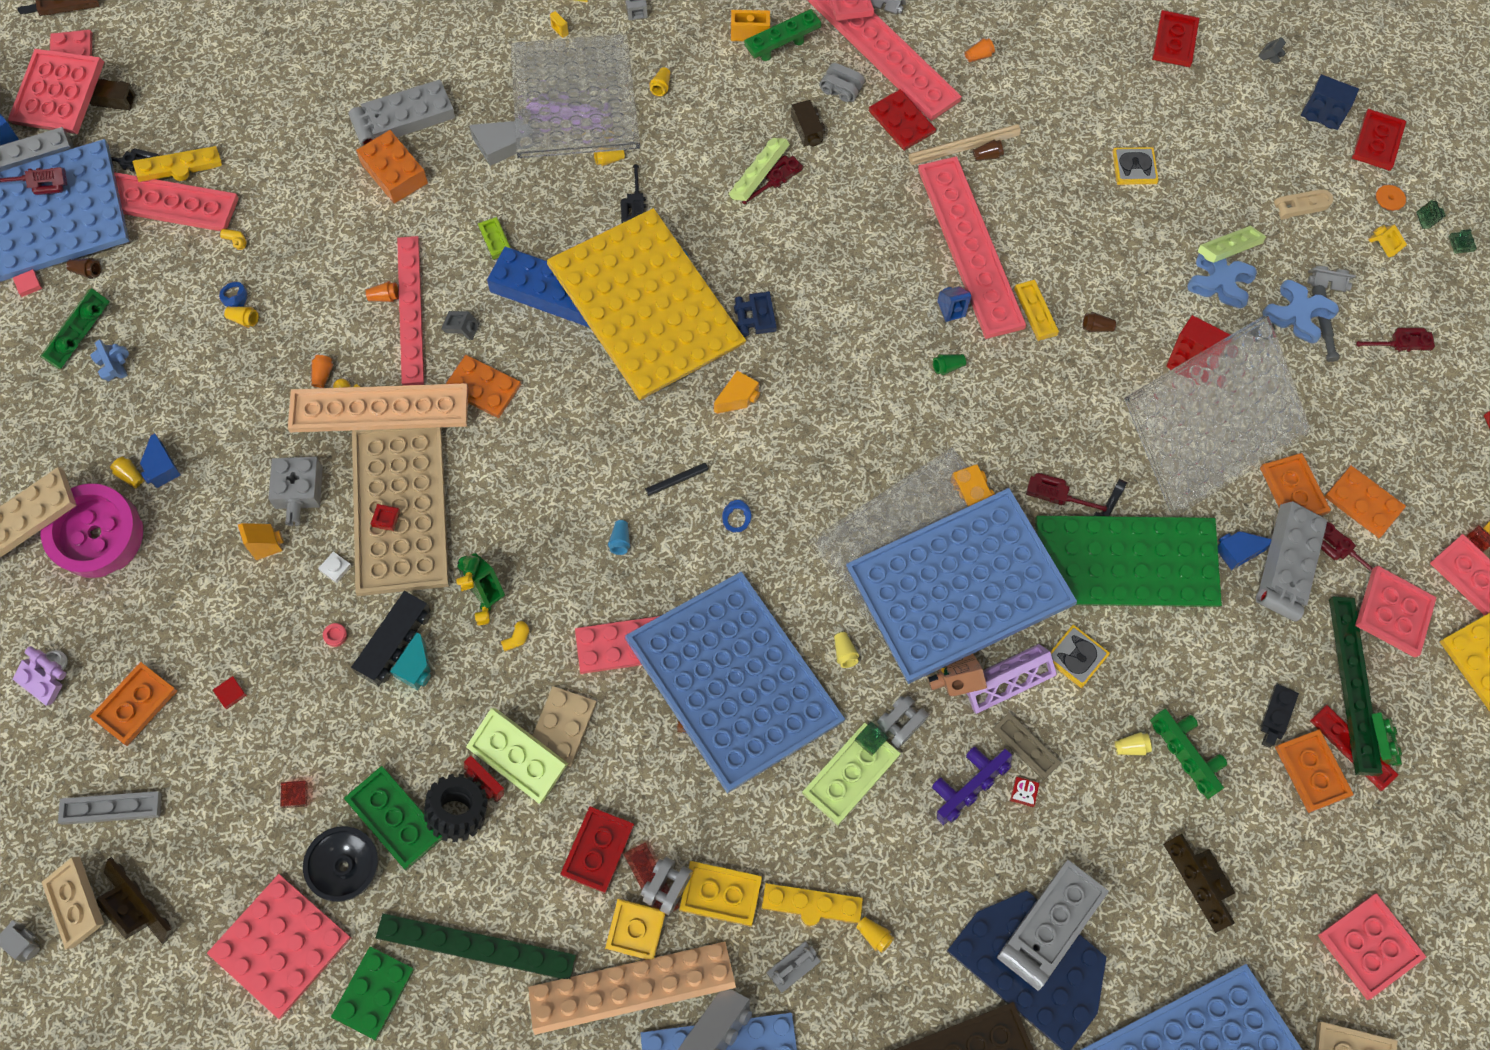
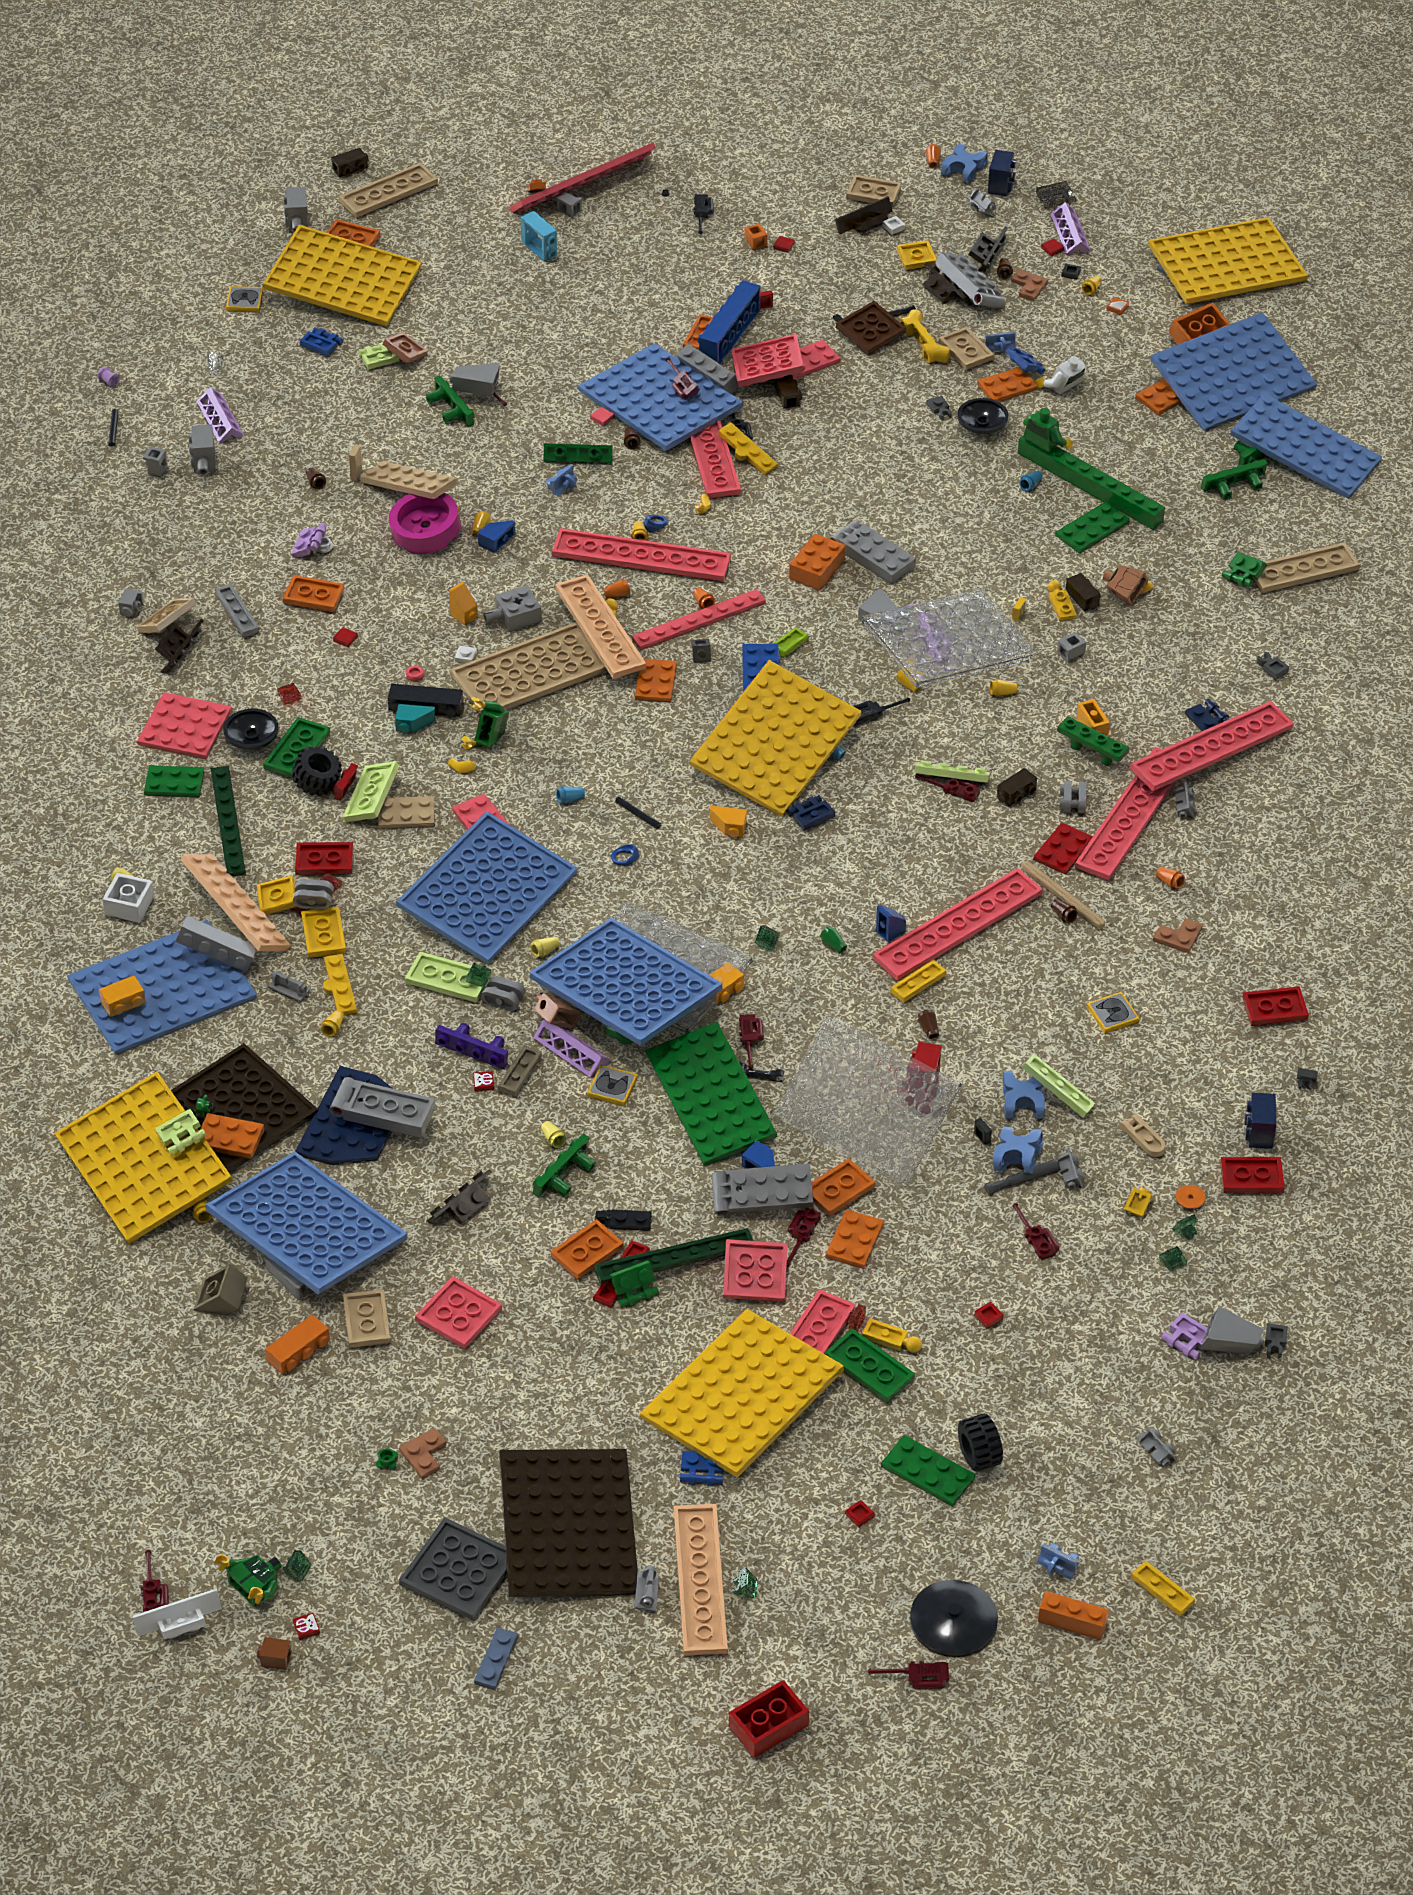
camera: 70 degrees right, 20 degrees down
(276, 328) = (641, 554): none -> coral plate
(385, 517) = (515, 662): red tile -> none
(923, 423) = (767, 938): none -> clear green tile
(1059, 74) = (1179, 939): none -> nougat plate

